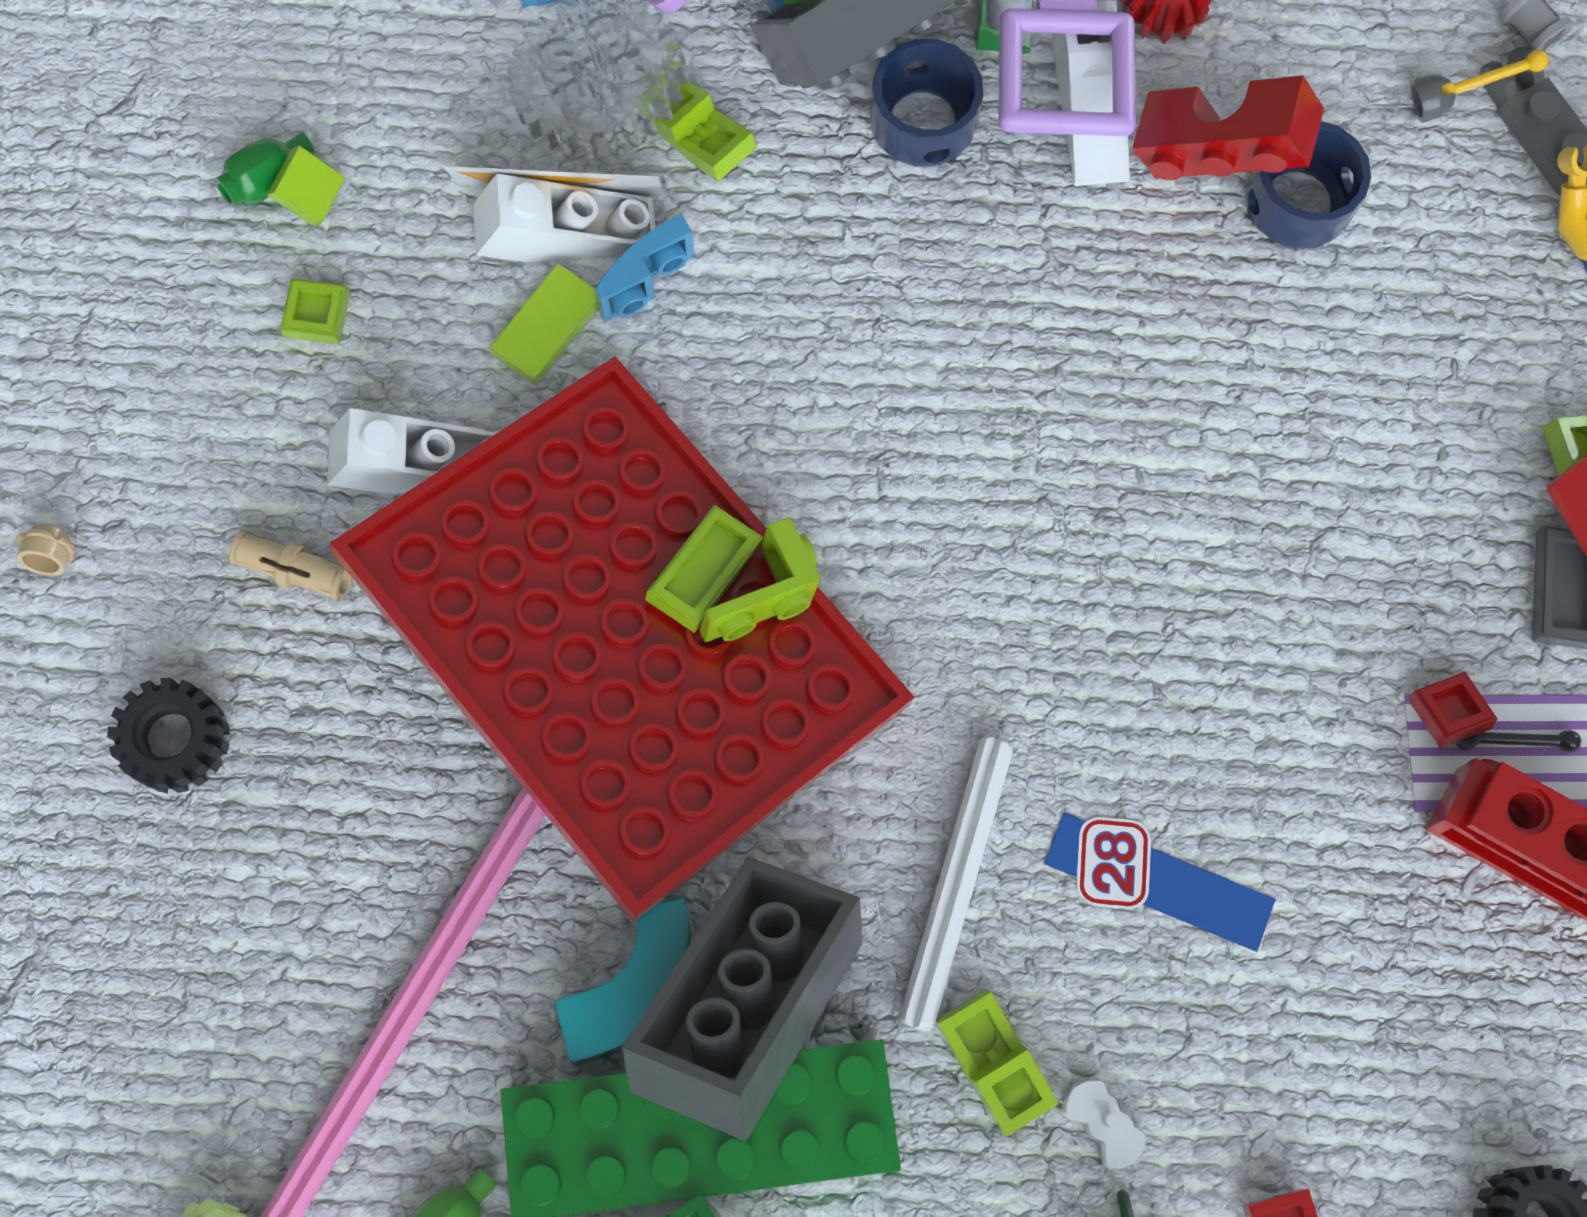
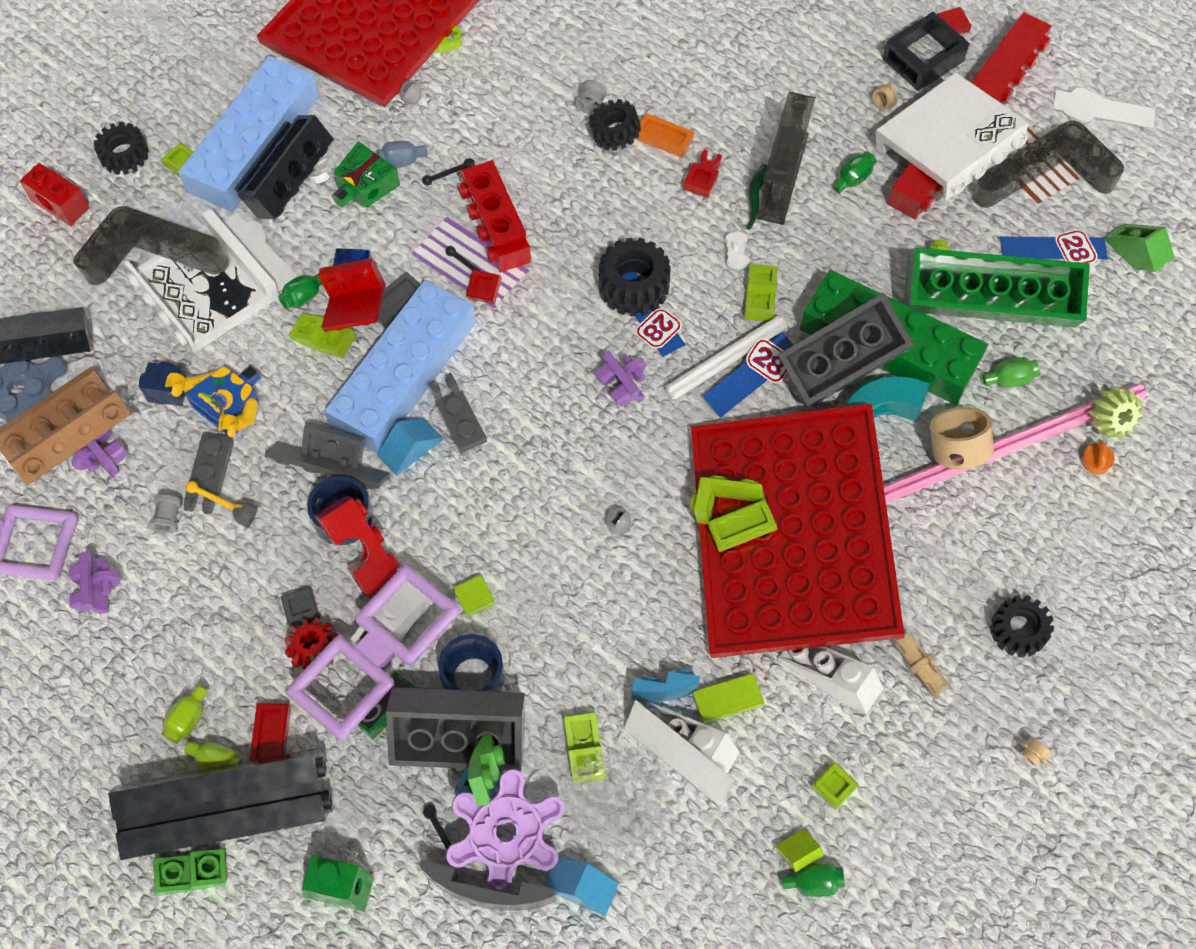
camera: 140 degrees left, 10 degrees down
(200, 1156) = (1098, 458): none -> orange tile
(481, 1018) = (950, 438): none -> tan piece
(889, 901) = (760, 365): none -> blue sticker
(893, 473) = (623, 523): none -> light grey hinge
(1016, 217) = (474, 595): none -> lime tile
(1090, 709) = (627, 389): none -> medium lavender hips
(1233, 41) = (300, 606): none -> dark grey tile
(1275, 892) = (634, 295): none -> black tyre
(1289, 464) = (458, 416): none -> dark grey hinge
(1312, 367) = (407, 444): none -> dark azure slope
(1399, 251) = (329, 453): none -> dark grey bracket
(1442, 468) = (401, 365): none -> light blue brick

